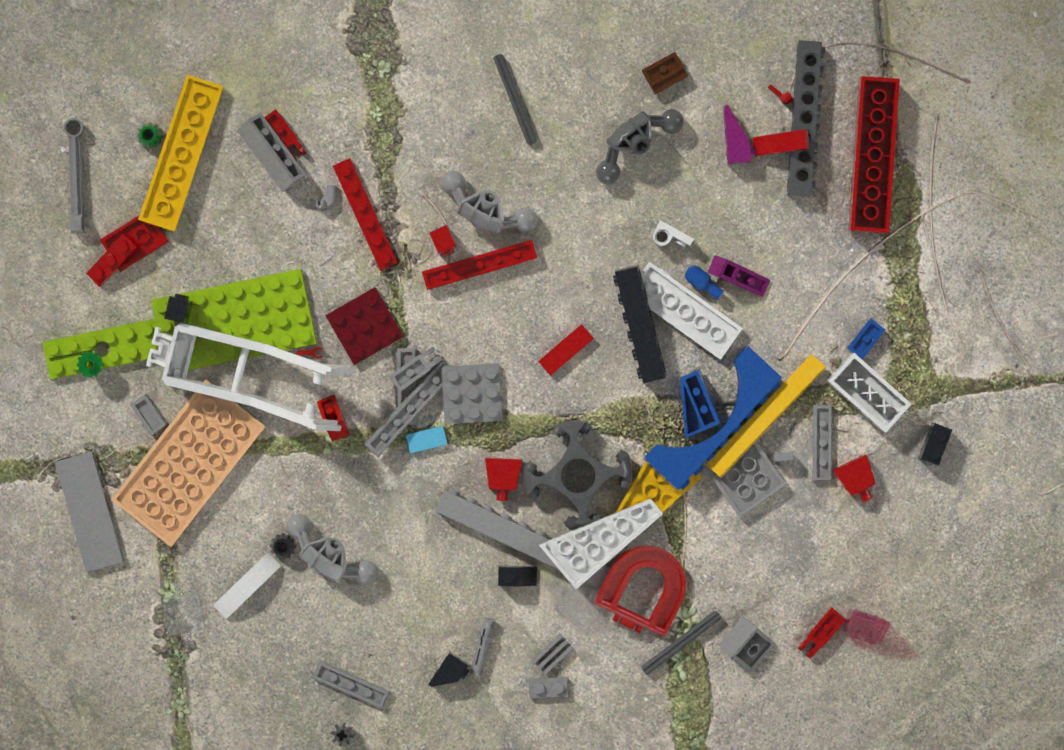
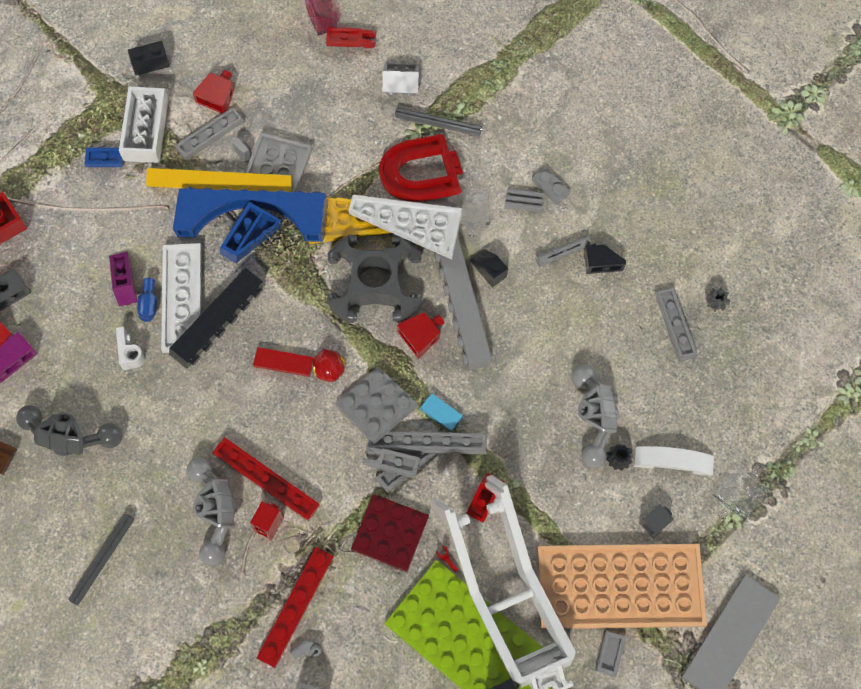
camera: 130 degrees left, 20 degrees down
(212, 531) = (657, 520): none -> dark grey brick
(533, 382) = (328, 365): none -> red hair

